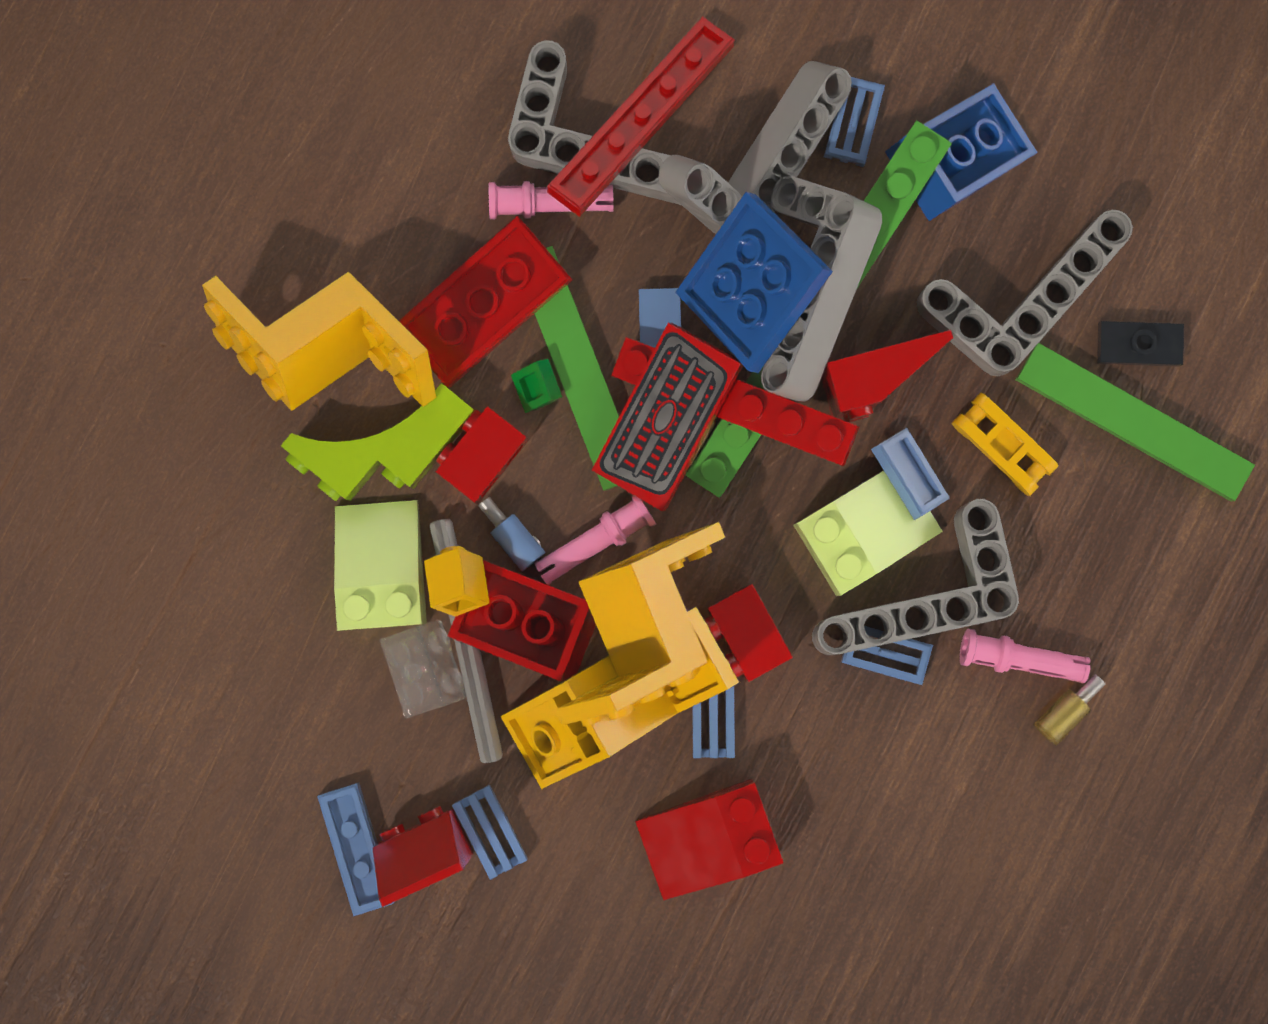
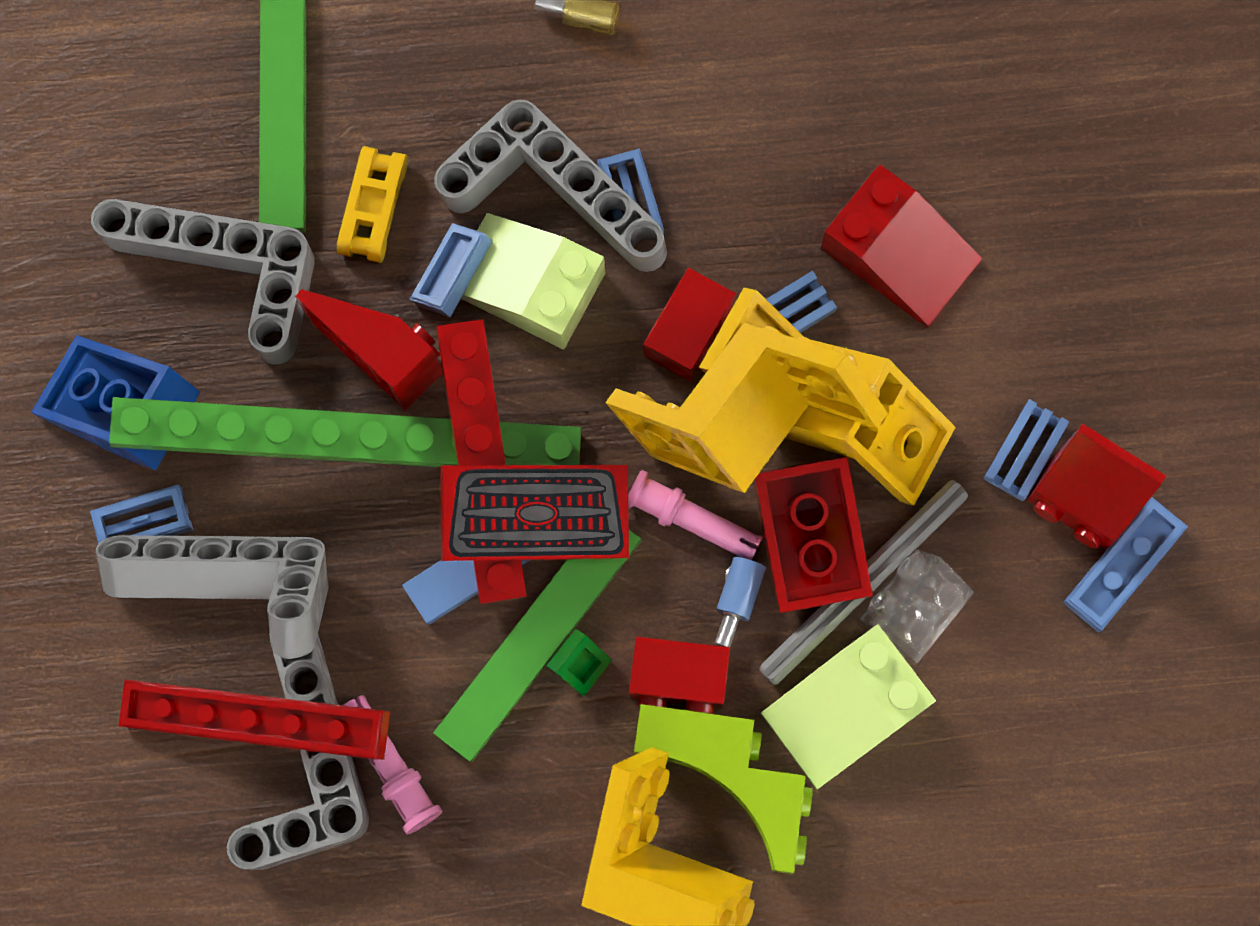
camera: 120 degrees left, 10 degrees down
(456, 581) = (815, 615): yellow brick -> none
(485, 301) = (524, 763): red tile -> none
(753, 282) = (356, 502): blue plate -> none
(844, 244) = (315, 442): light grey beam -> none
(1006, 655) = (565, 91): bright pink pin -> none
(1140, 343) = (206, 141): black plate -> none

